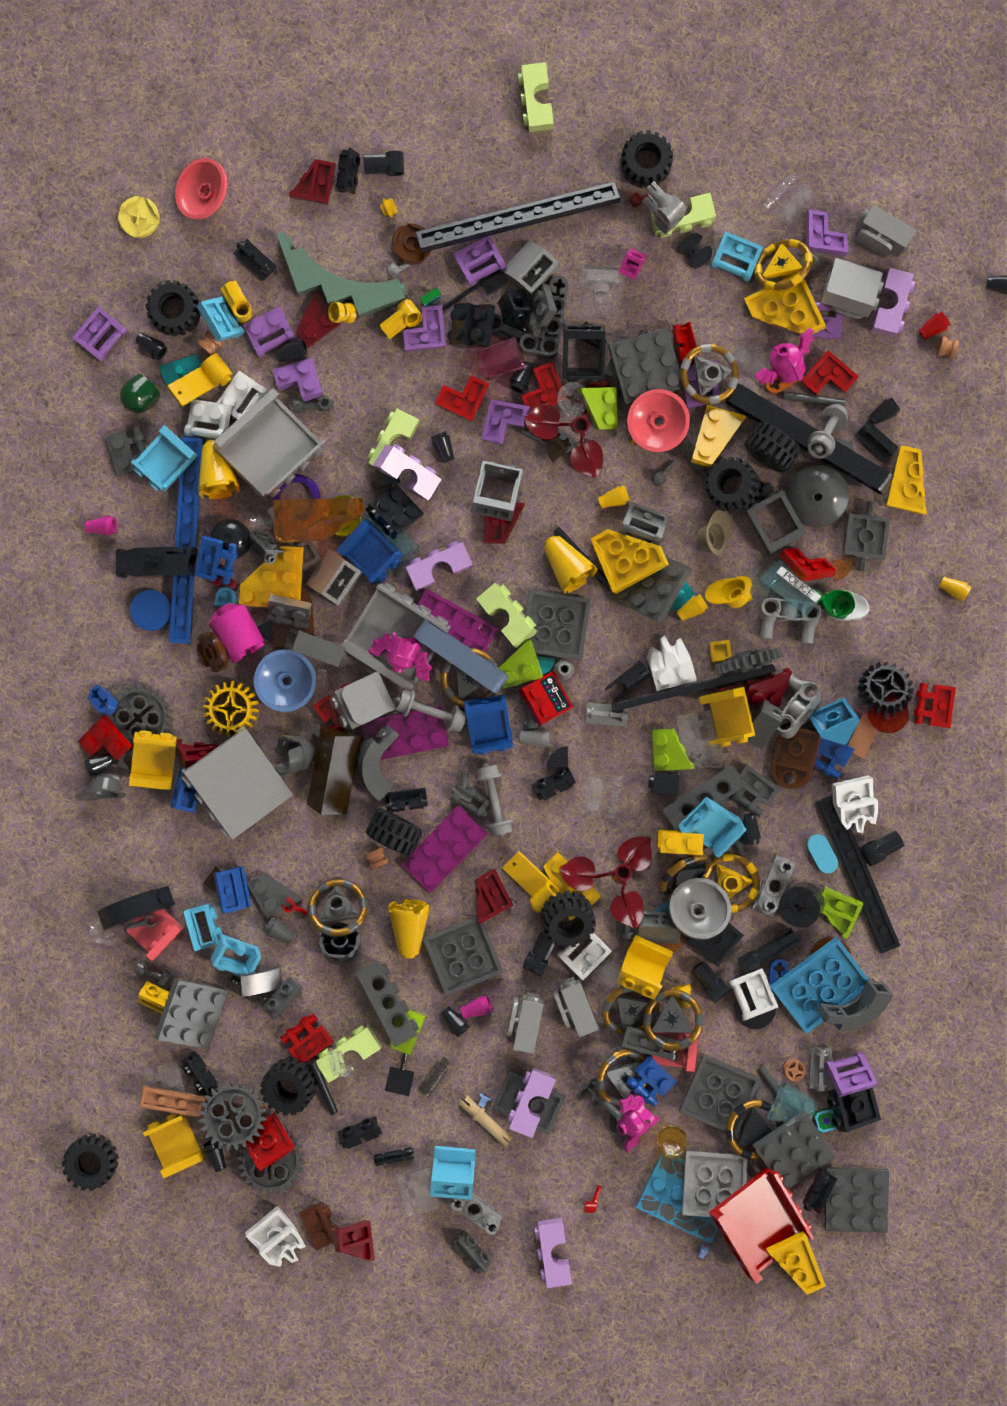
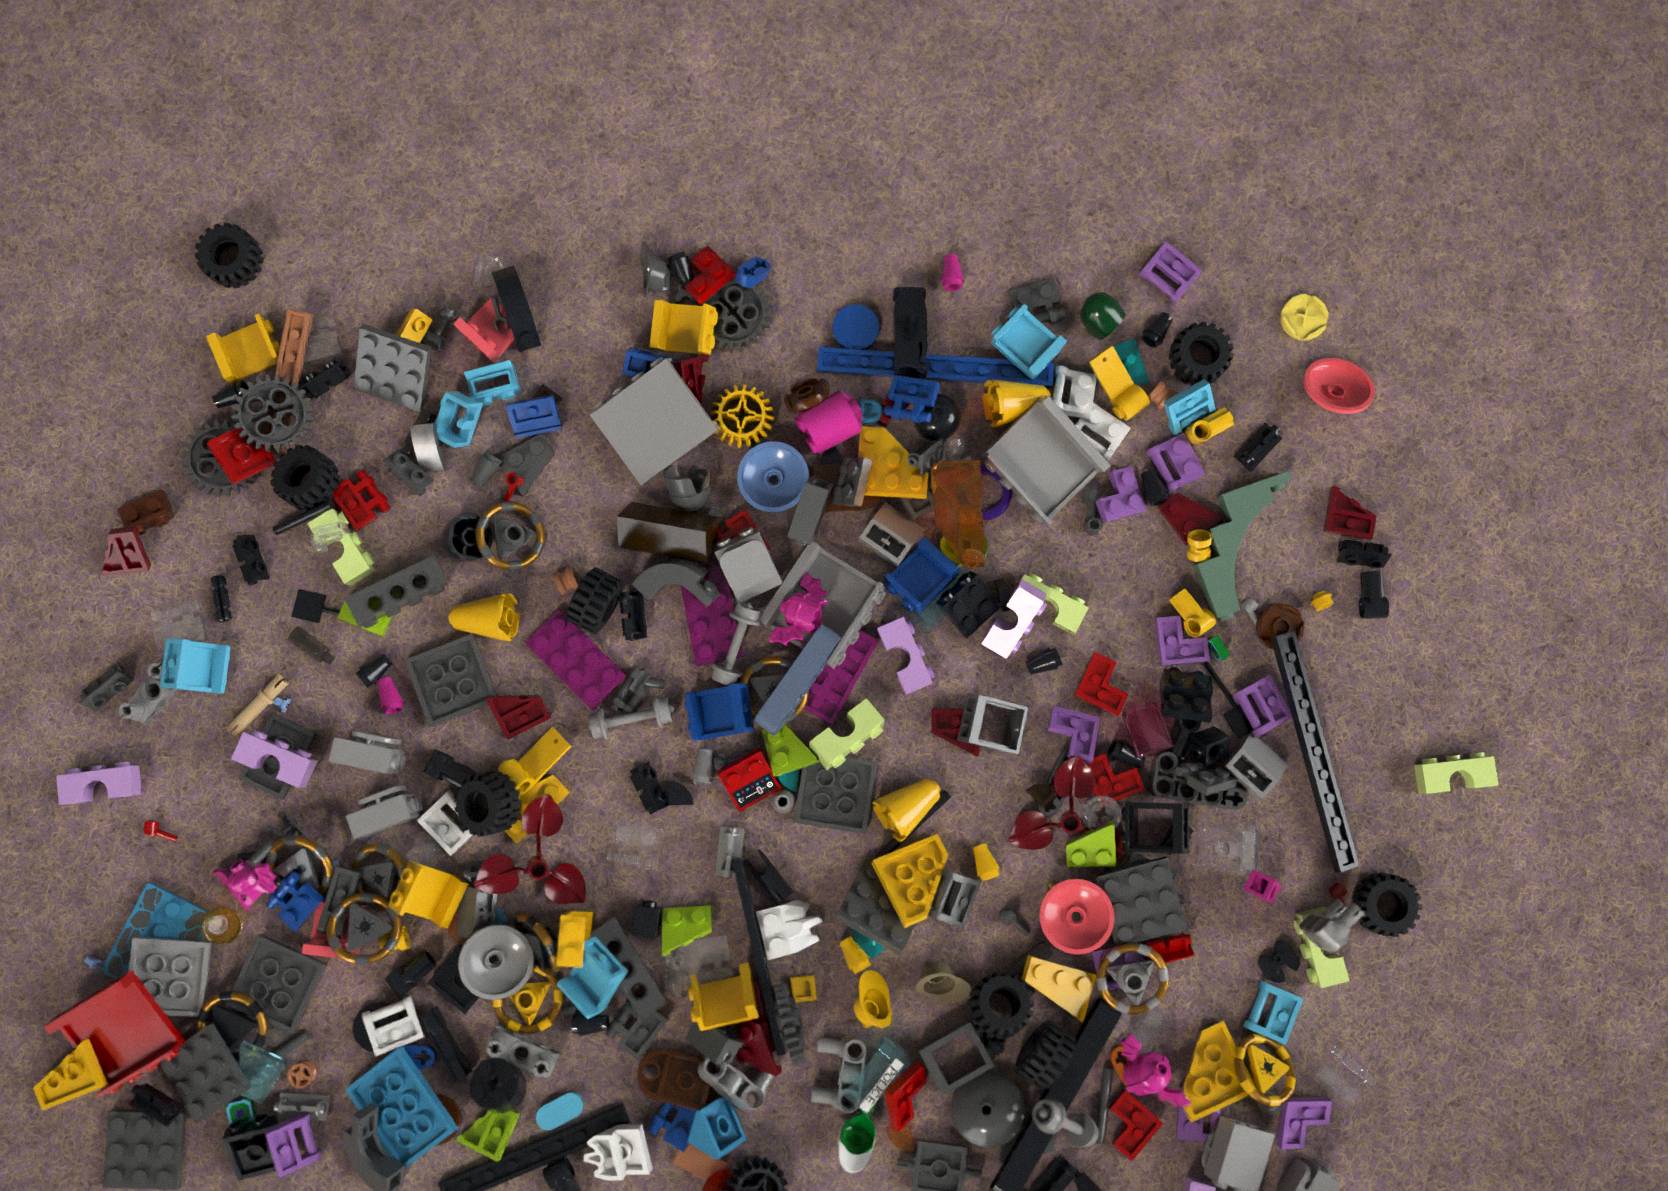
camera: 85 degrees right, 5 degrees down
(275, 1237) = (133, 463): white plate -> none

